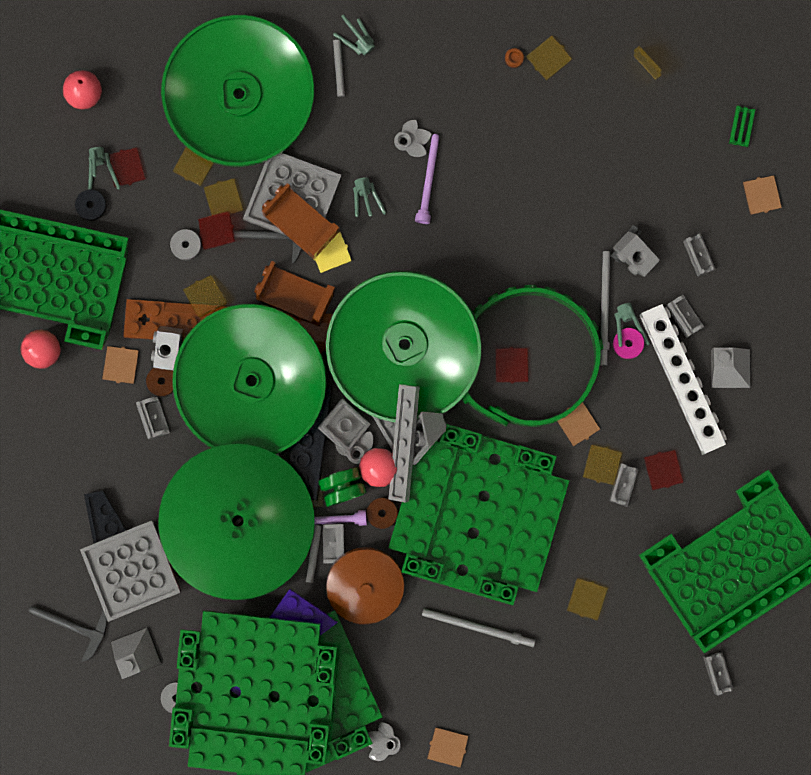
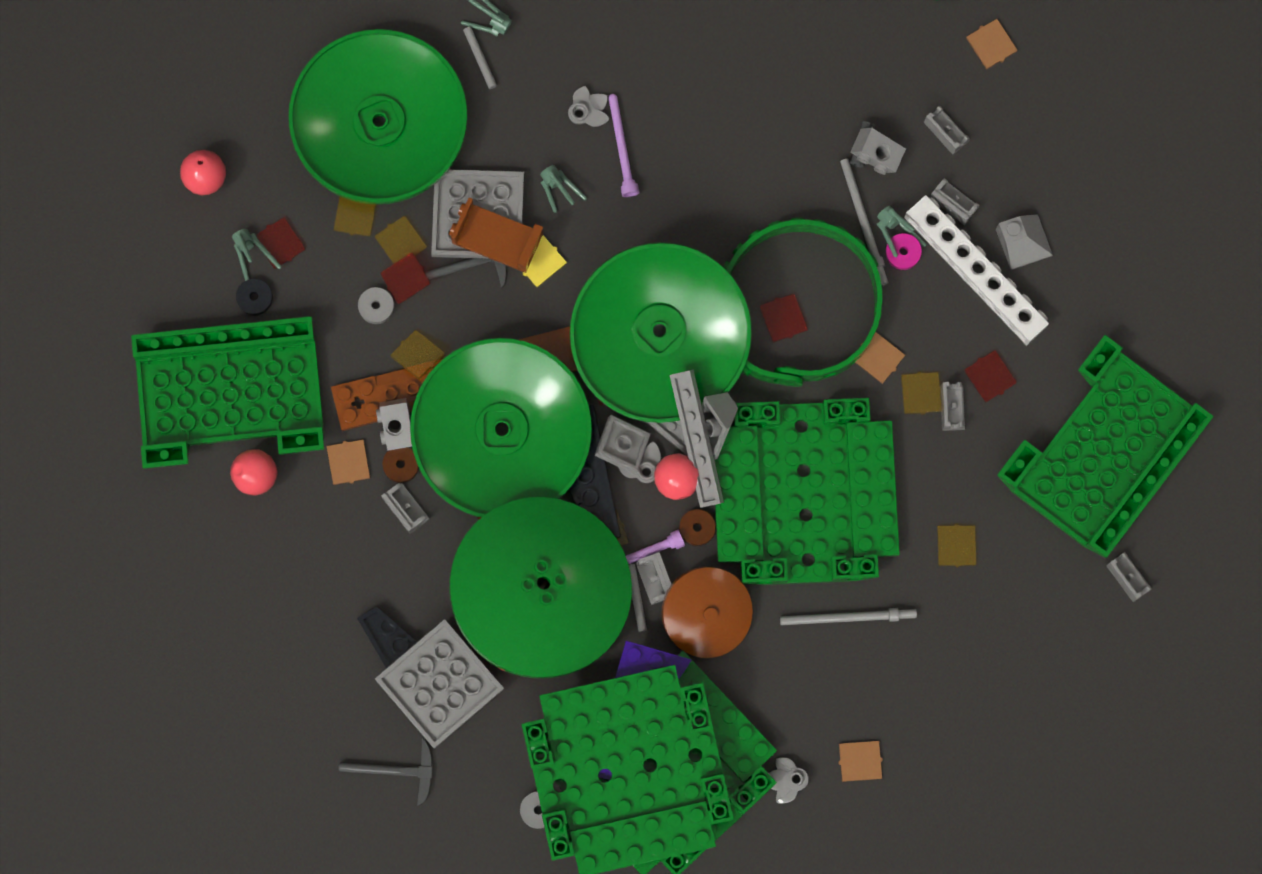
camera: 30 degrees left, 5 degrees down
(135, 653) = (475, 775): light grey slope -> none
(294, 294) = (517, 319): dark orange panel -> none
(342, 486) = (642, 508): green wheel -> none

